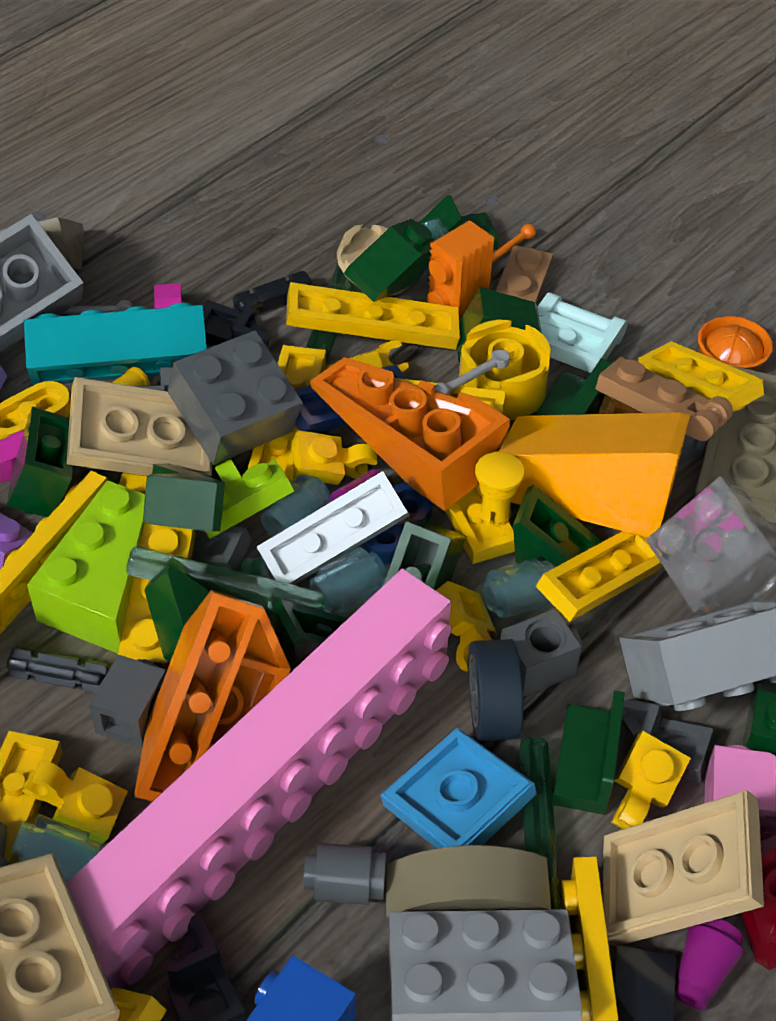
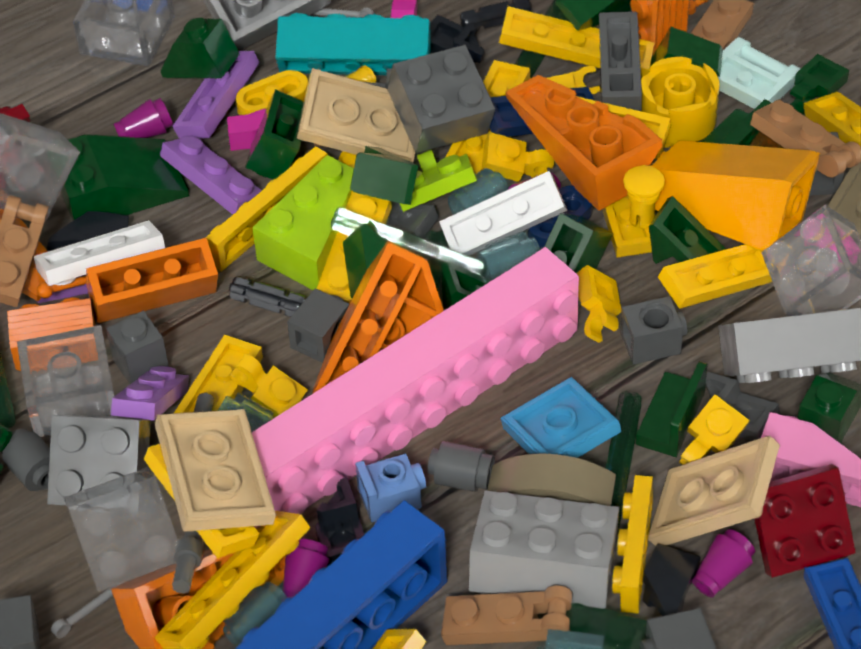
camera: 15 degrees right, 0 degrees up
(255, 932) = (389, 483): none -> medium blue brick
(429, 330) = (620, 59): none -> dark grey slope
(495, 689) = (605, 350): black wheel -> none
(499, 360) = (671, 91): light grey hinge -> none
(514, 589) = (640, 279): clear light blue brick -> none
(646, 330) = (817, 79): none -> dark green plate

